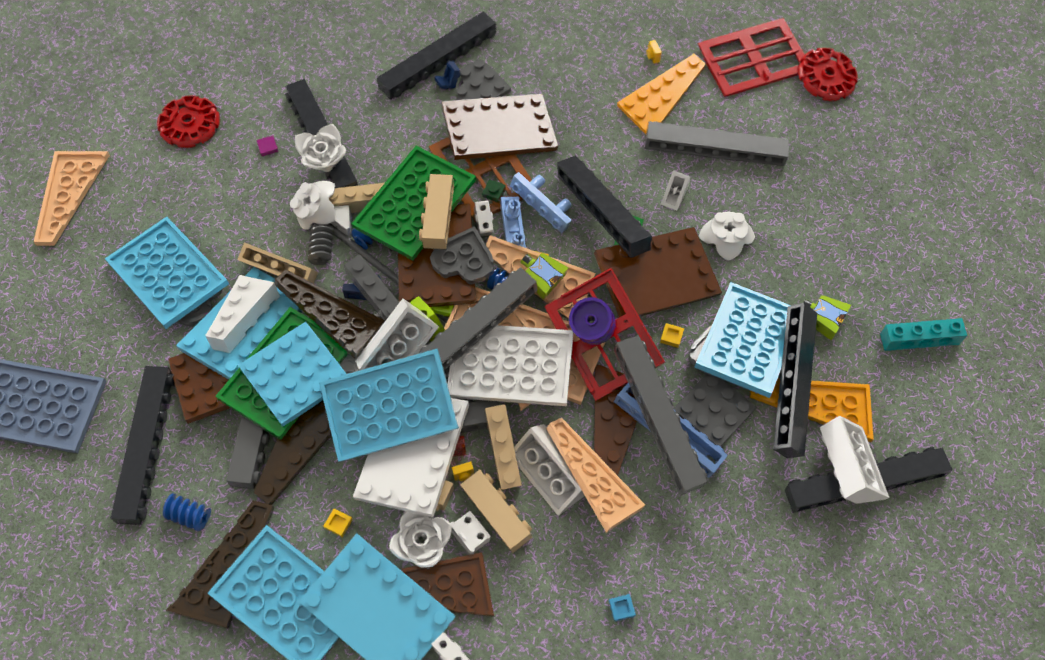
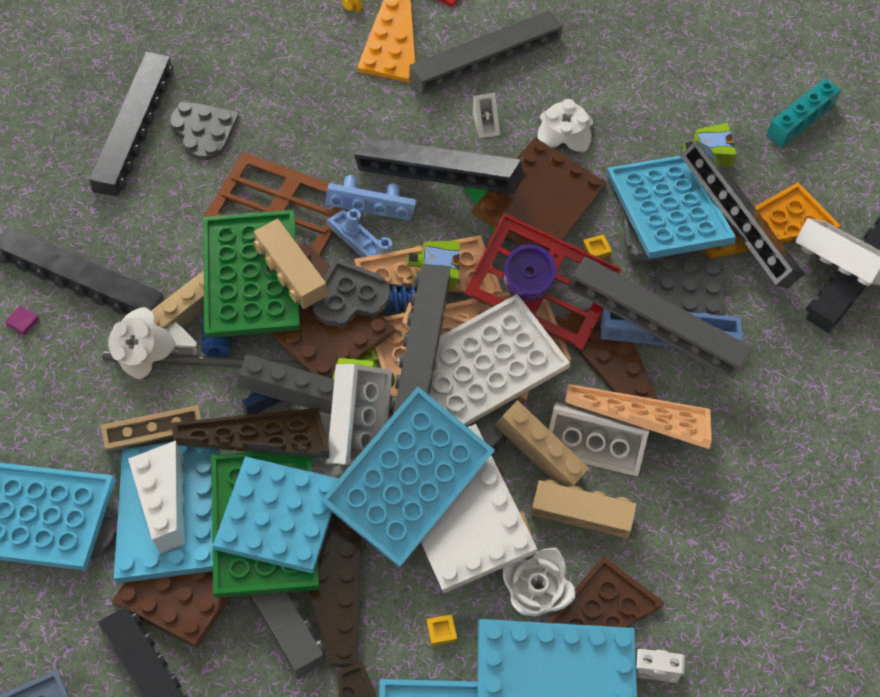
camera: 40 degrees left, 5 degrees down
(320, 150) = (100, 269): white brick -> none
(320, 244) = (177, 380): dark grey piece -> none
(450, 76) = (166, 136): dark blue bracket -> none
(463, 471) = (521, 495): yellow plate -> none
(468, 533) = (577, 547): white piece -> none
(483, 218) = (328, 247): white piece -> none
(493, 190) = (313, 218): dark green plate -> none
(498, 126) = (261, 155): plate -> none
(622, 607) = (765, 514): dark azure plate -> none

